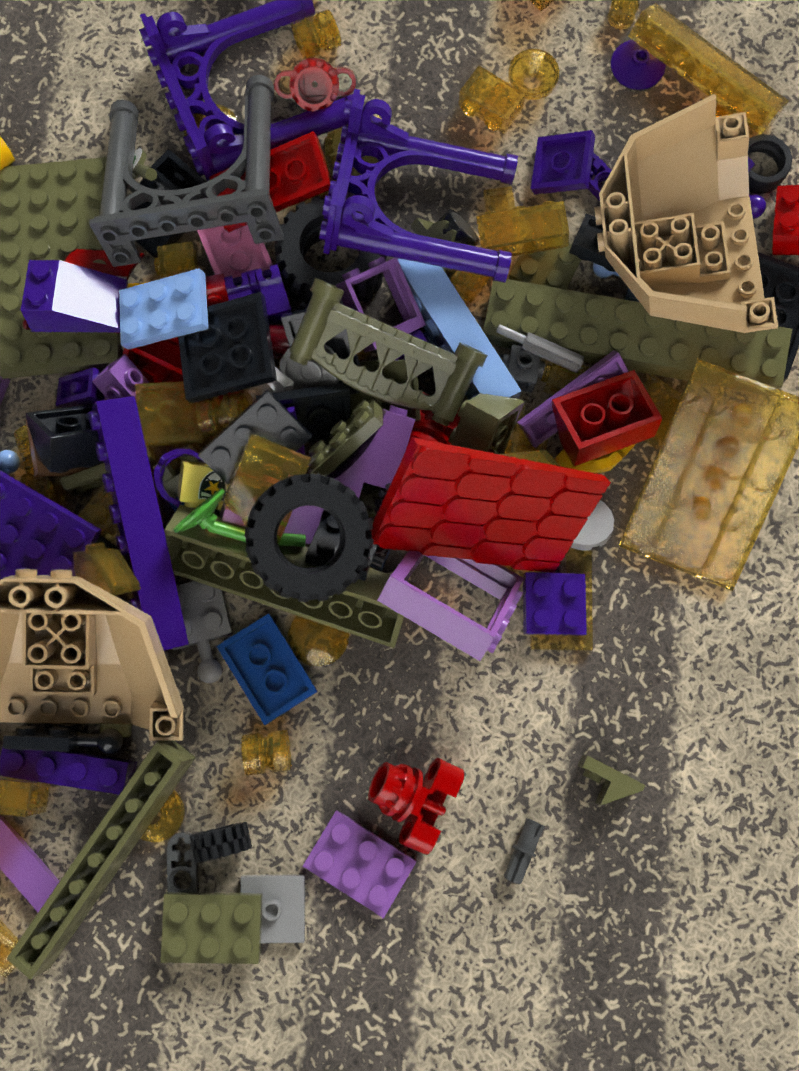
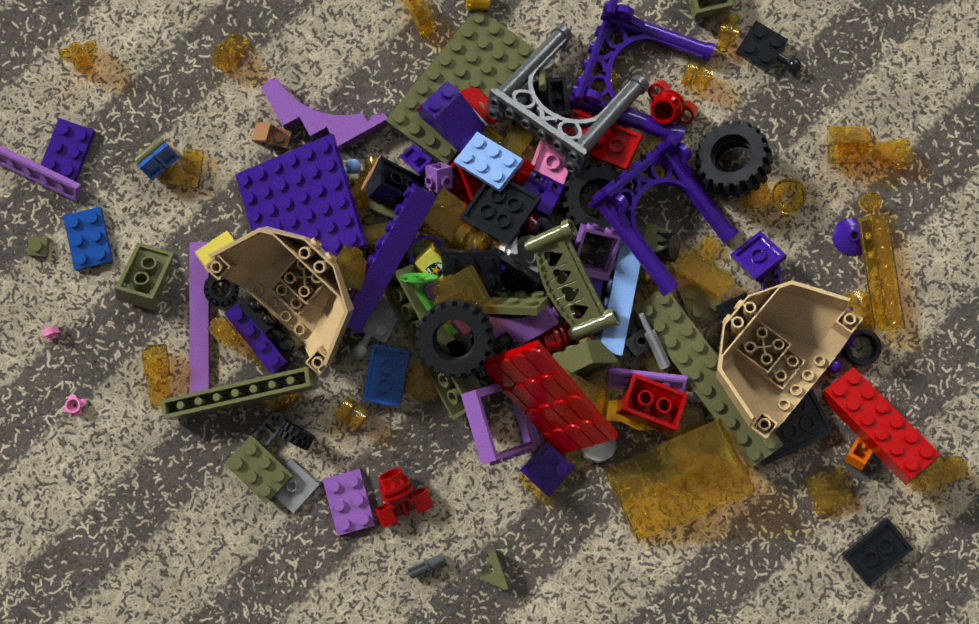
camera: 50 degrees right, 5 degrees up
(420, 53) = (723, 139): none -> black tyre

